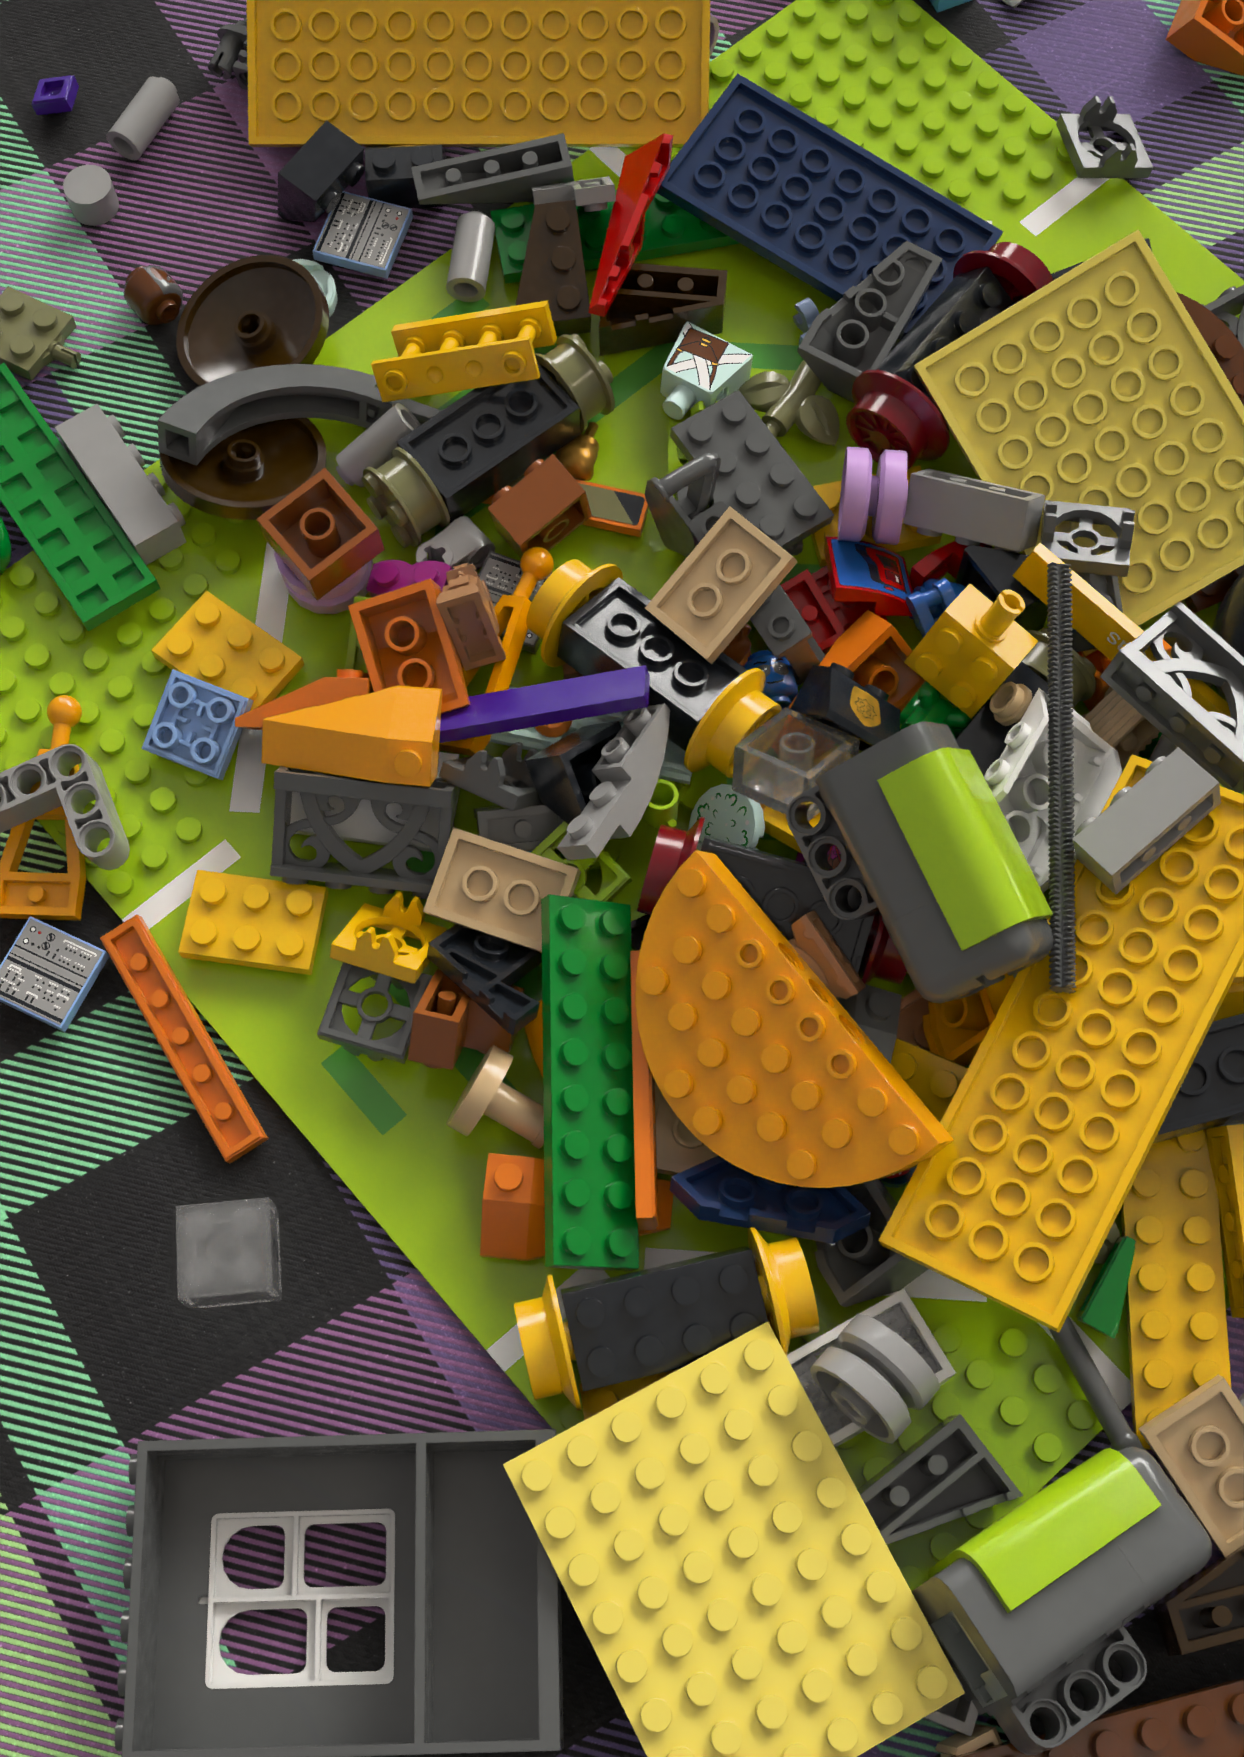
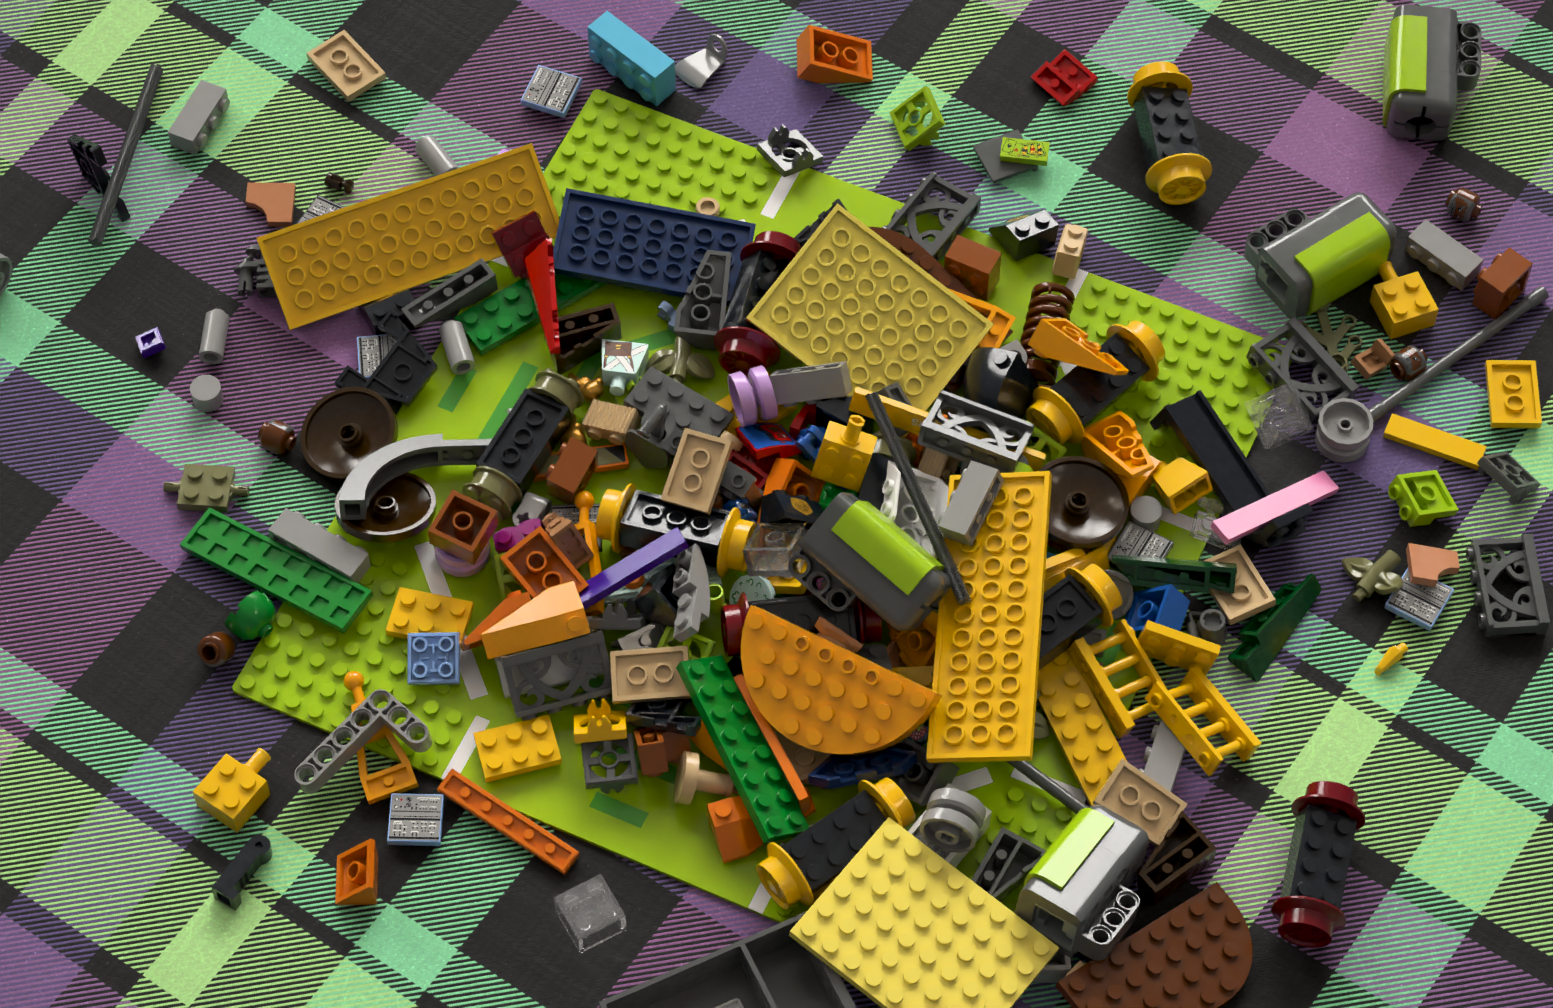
camera: 25 degrees left, 10 degrees down
(319, 174) = (346, 333): black slope -> none
(372, 263) = (402, 370): none -> black wing
(375, 444) = (460, 470): light grey brick -> none
(465, 351) = (487, 400): yellow fence -> none
(556, 268) = (514, 341): dark brown wedge -> none
(588, 193) = (513, 286): light grey plate -> none
(632, 122) = (518, 240): none -> dark red plate
(633, 391) = (590, 388): none -> pearl gold piece
(637, 452) = (610, 421): none -> tan brick
(810, 555) = (737, 443): none -> tan tile
(944, 181) = (708, 206): none -> tan tile
(1010, 703) = (876, 474): tan plate -> none
(1084, 559) = (883, 387): dark grey piece -> none
(1106, 1297) = (1051, 754): green slope -> none

